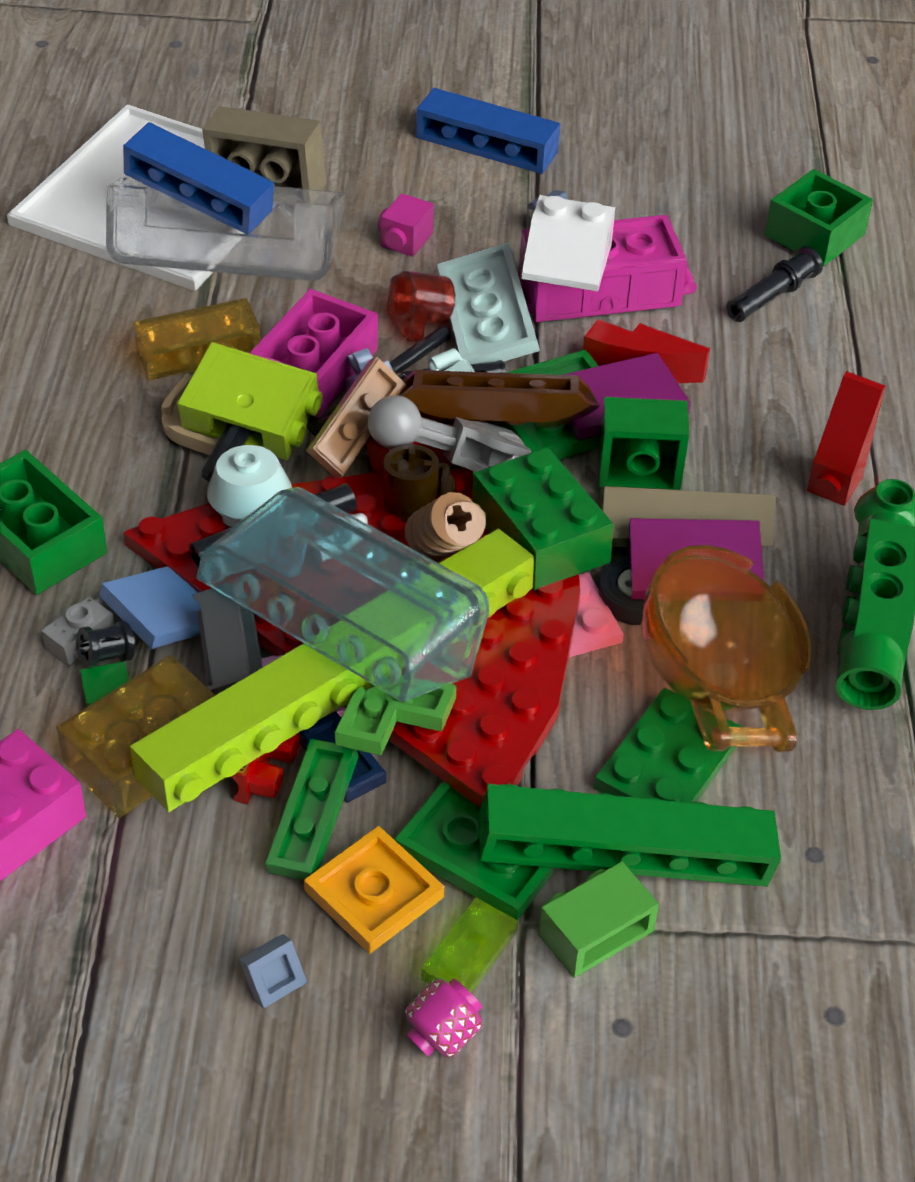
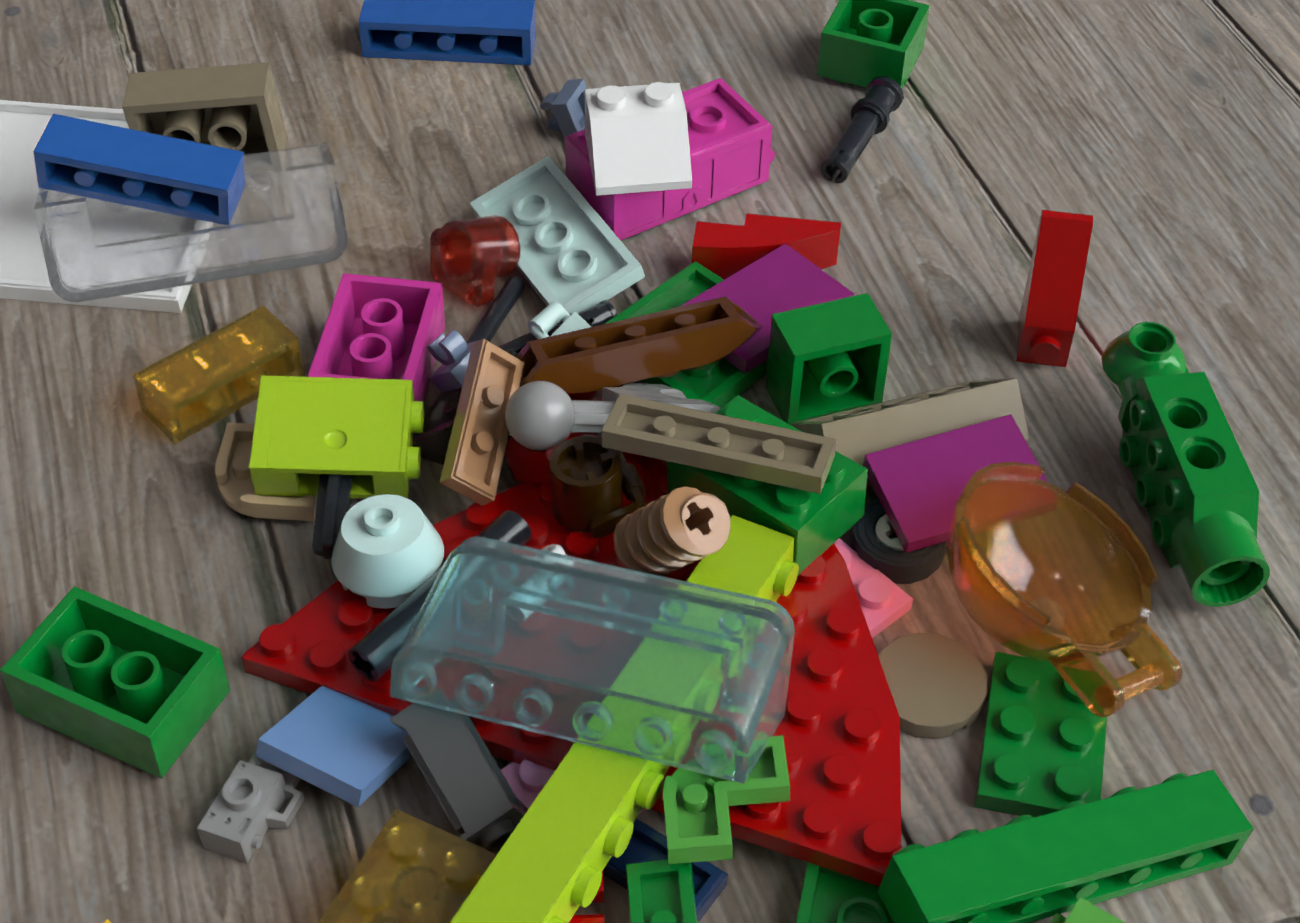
camera: 20 degrees left, 0 degrees up
(102, 680) = (312, 876): green tile -> none
(105, 644) = (306, 822): black bush -> none
(406, 224) = (408, 164): dark pink brick -> none
(506, 473) = (719, 443): none -> dark tan plate
(603, 696) = (934, 684): none -> dark tan tile

